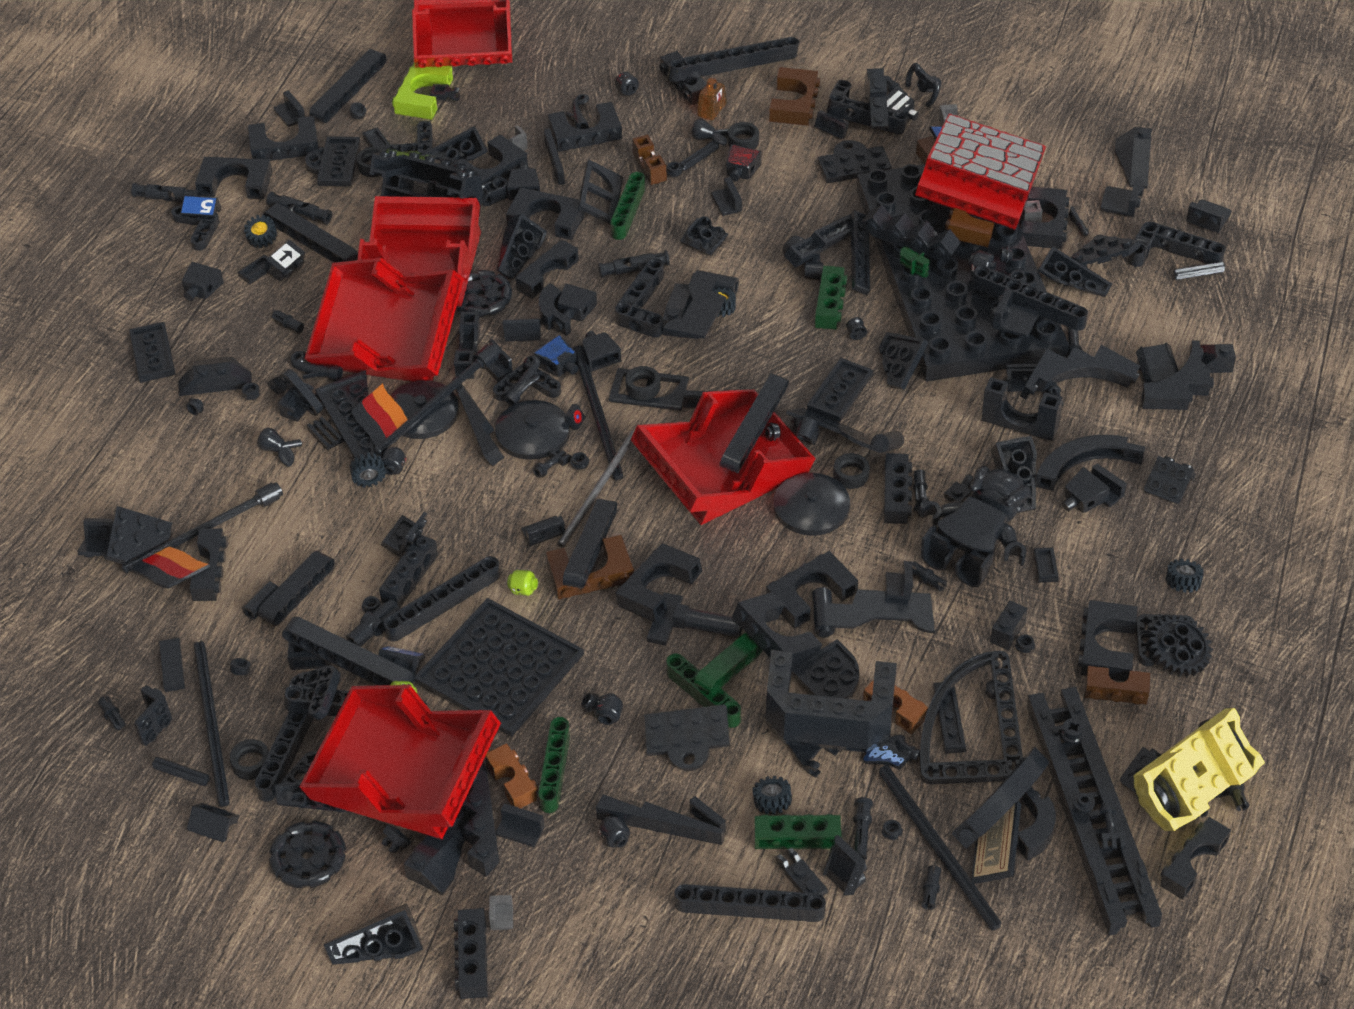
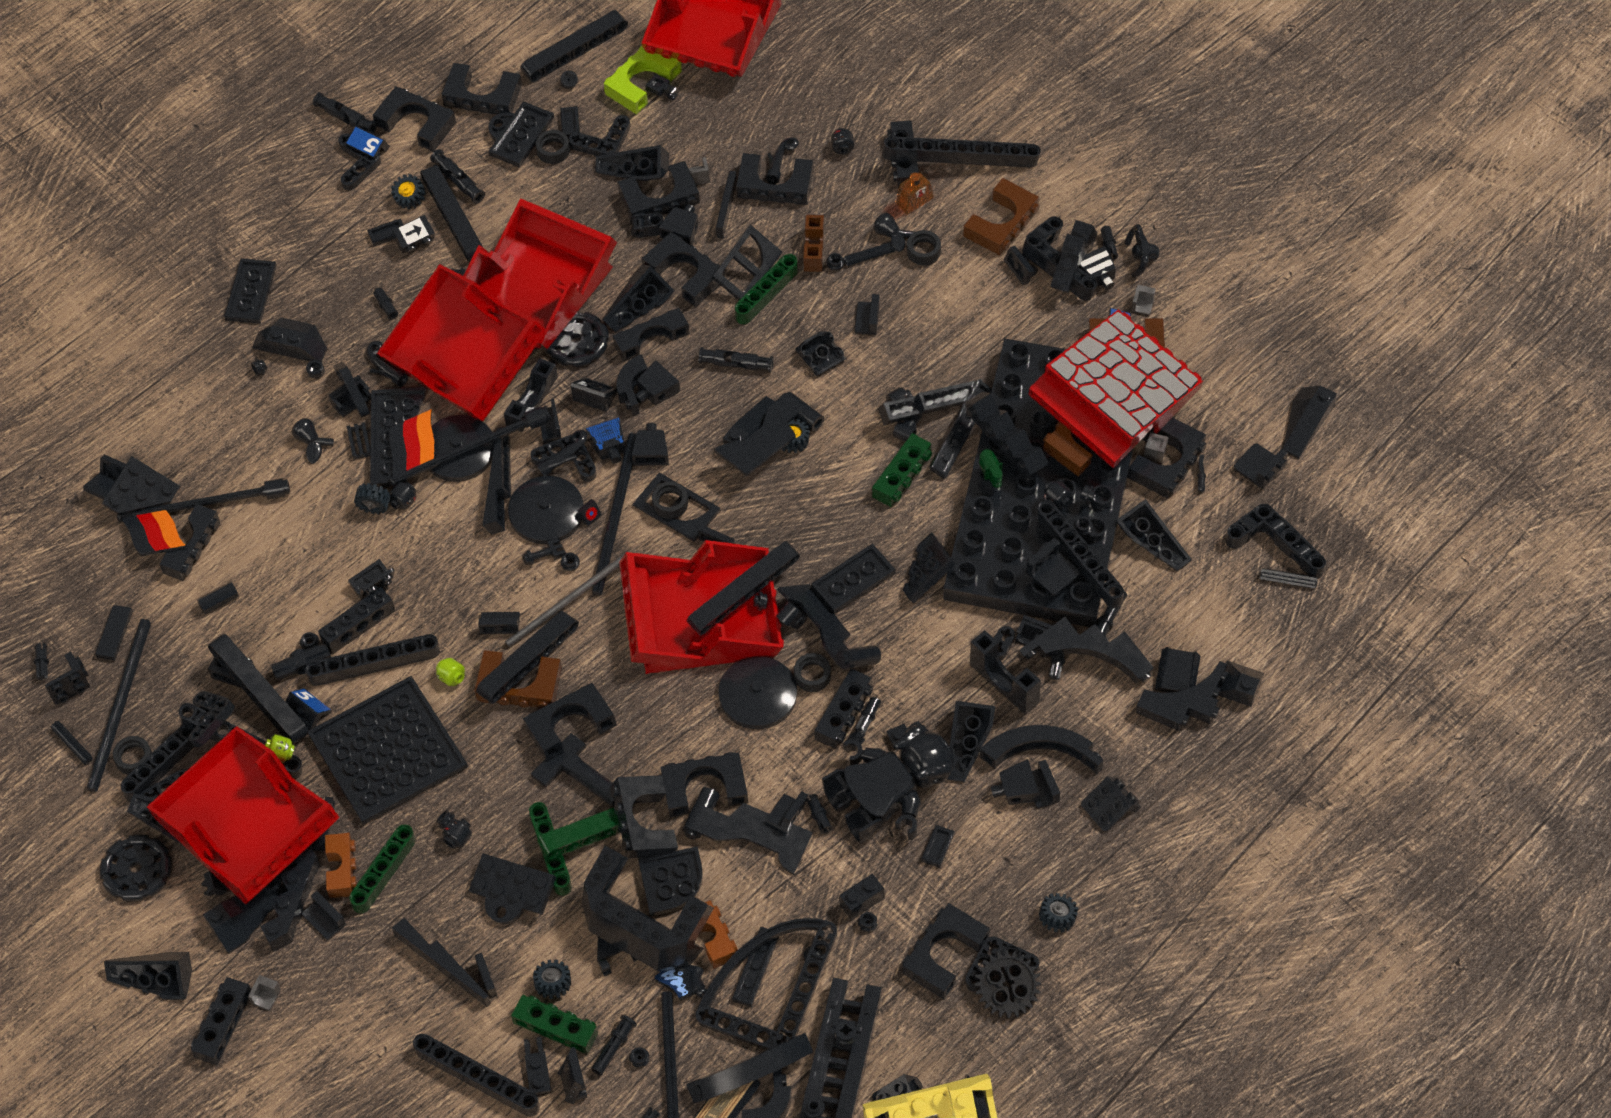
camera: 25 degrees right, 10 degrees up
(201, 281) = (327, 229): black torso -> none
(211, 821) = (73, 802): black panel -> none
(240, 666) = (168, 658): black tile -> none
(290, 109) = (505, 56): black panel -> none
(296, 588) = (253, 597): black beam -> none
(443, 178) = (580, 194): black wedge -> none
(614, 831) = (399, 956): black head -> none
(629, 310) = (714, 401): black beam -> none
(742, 162) = (904, 279): black torso -> none
(847, 163) = (1017, 317): black plate -> none
(856, 328) = (907, 515): black wheel -> none
(1102, 687) = (938, 1011): reddish brown arch -> none
(1103, 247) = (1200, 518): black plate -> none
(1208, 215) = (1338, 516): black bracket -> none

